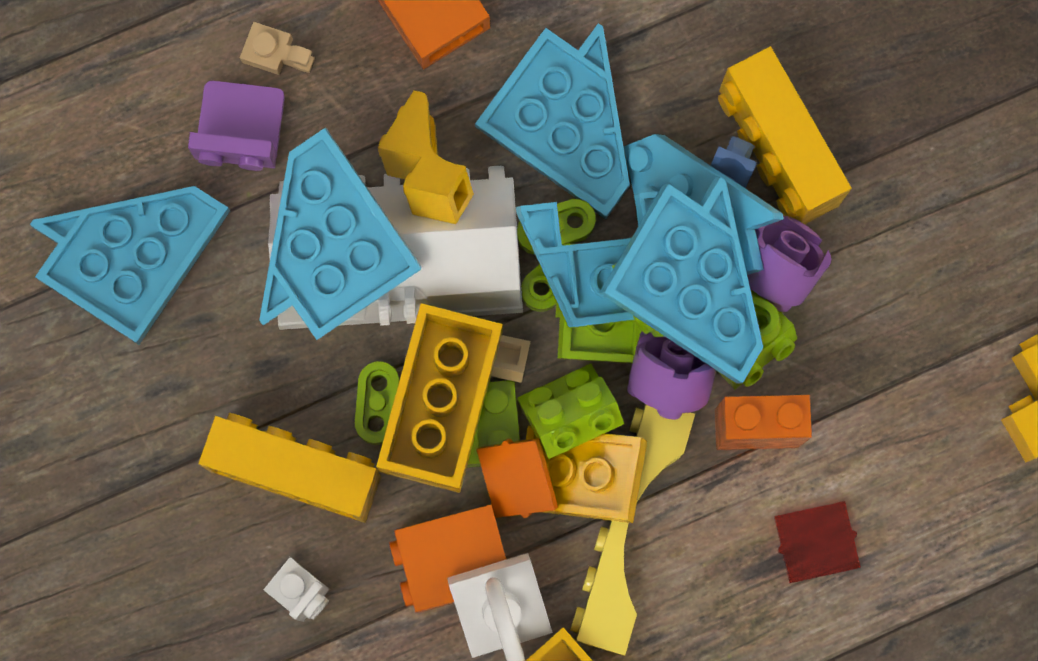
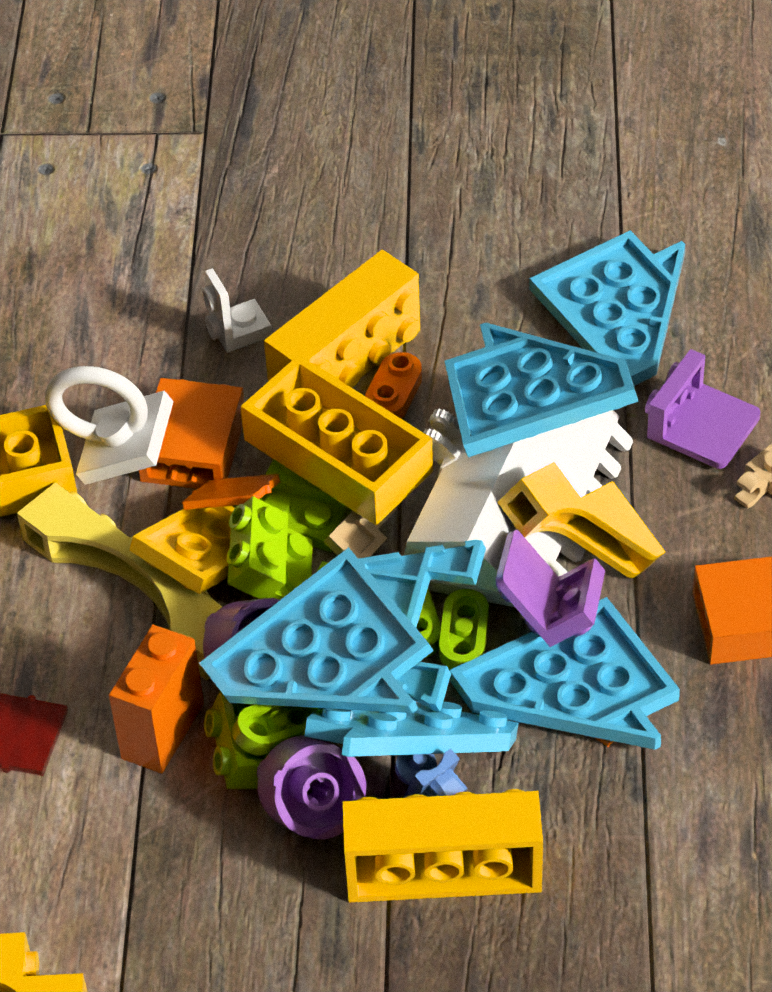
camera: 120 degrees right, 30 degrees down
(311, 412) = (398, 381): none -> orange plate
(509, 153) = (549, 603): none -> medium lavender bracket

